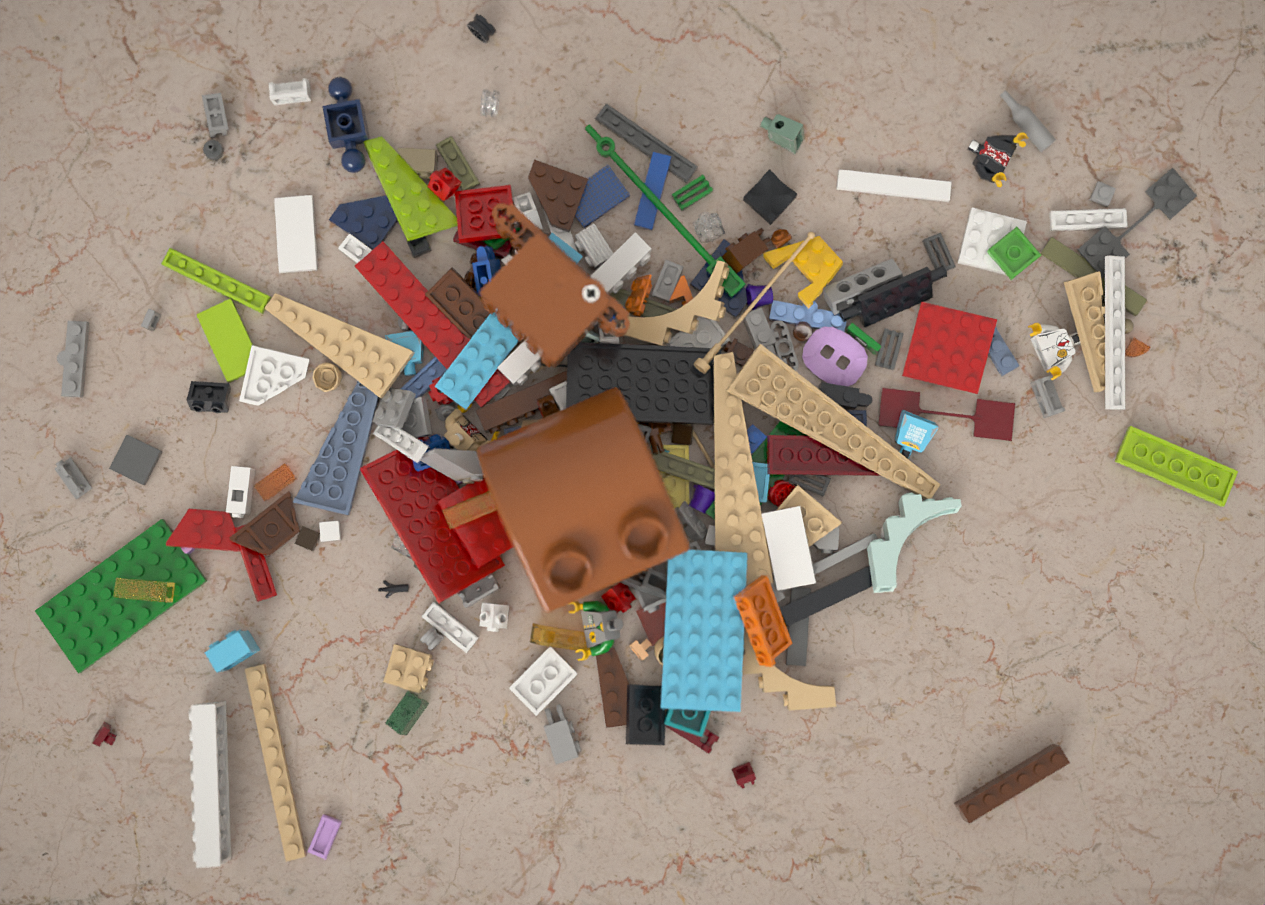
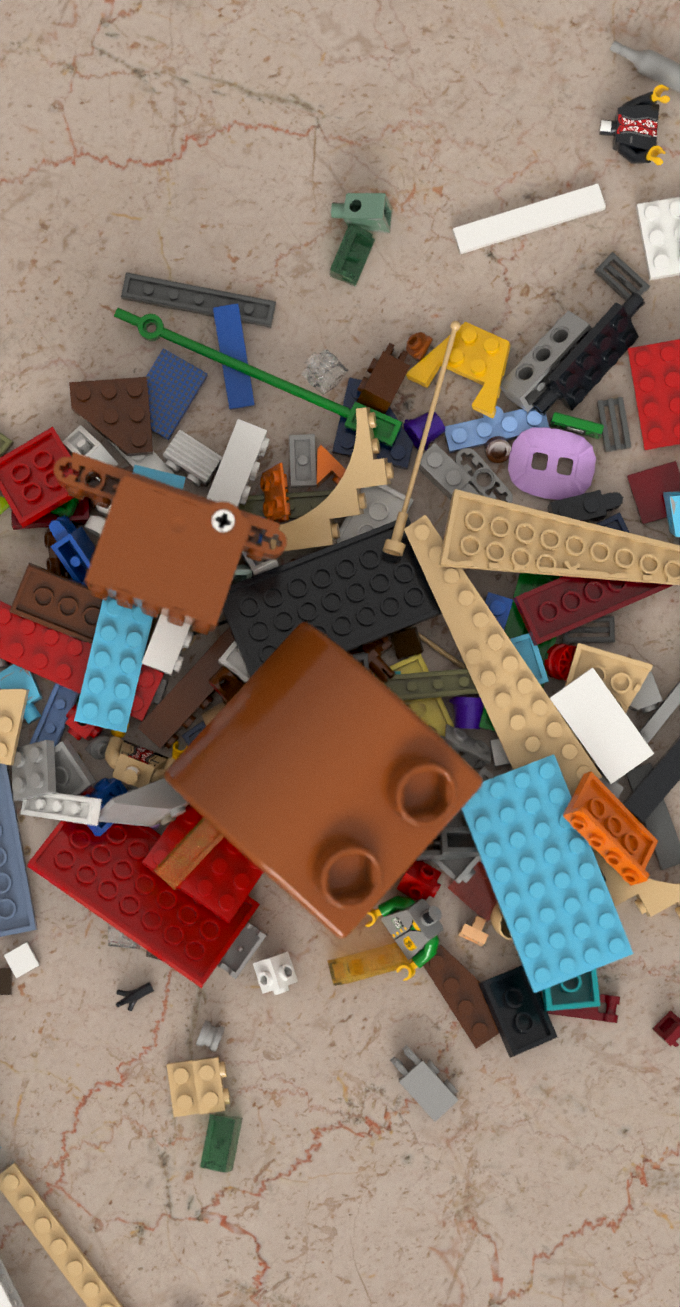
camera: 25 degrees left, 0 degrees up
(450, 627) = (226, 1011): white tile -> none
(543, 680) = (372, 1025): white plate -> none
(705, 184) = (295, 319): green tile -> none
(740, 351) = (434, 508): reddish brown bracket -> none
(762, 157) = (352, 255): none -> clear green hinge
(769, 197) = (383, 300): black brick -> none

